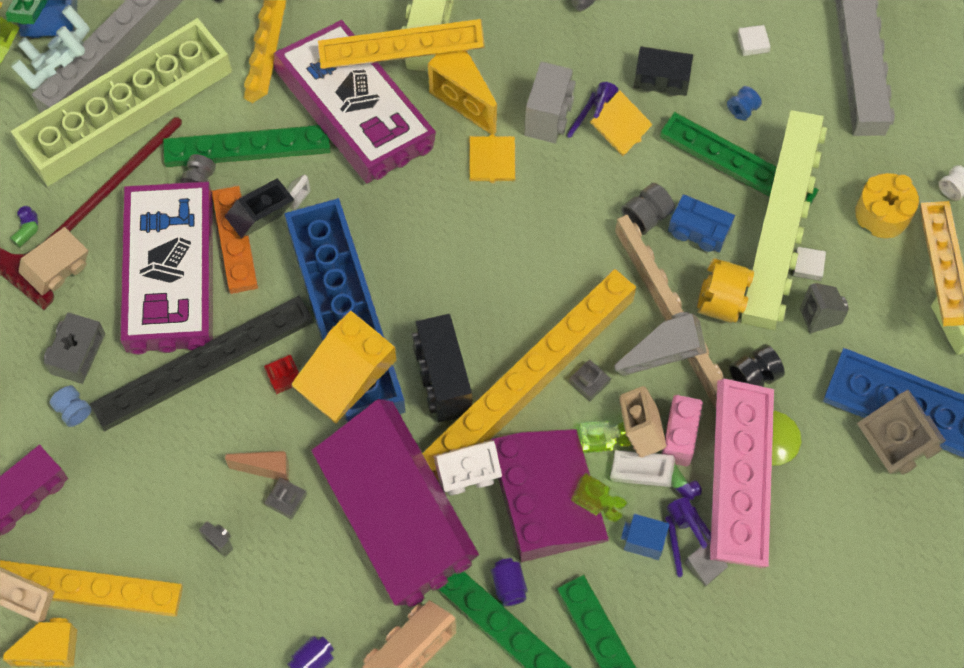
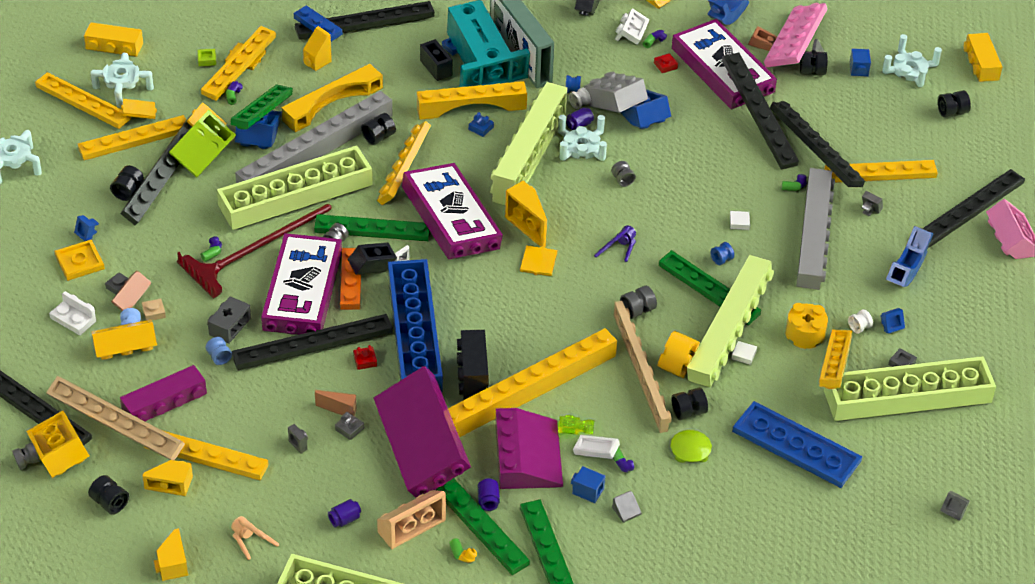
camera: 10 degrees right, 20 degrees down
(53, 261) = (227, 268): tan brick -> none
(61, 52) = (271, 145): light aqua plate -> none
(344, 366) = (407, 347): yellow slope -> none
(401, 44) = (490, 175): yellow plate -> none
(468, 466) = (475, 419): white bracket -> none
(549, 102) = (584, 230): light grey brick -> none
(589, 380) = (573, 394): flat silver tile -> none
(595, 497) = (560, 456): clear neon green plate -> none
(621, 123) = (632, 251): yellow piece -> none
(642, 422) = (601, 416): tan brick -> none
(663, 71) = (670, 226): black brick -> none
(668, 343) = (629, 375): light grey slope -> none
(682, 429) = (629, 428): bright pink brick -> none
(684, 516) = (617, 478): dark purple plant -> none
(701, 224) = (673, 316): blue brick -> none
(742, 474) = (662, 456): bright pink plate -> none
(823, 307) = (745, 375): dark grey slope -> none
(901, 433) = (779, 452): dark tan plate -> none

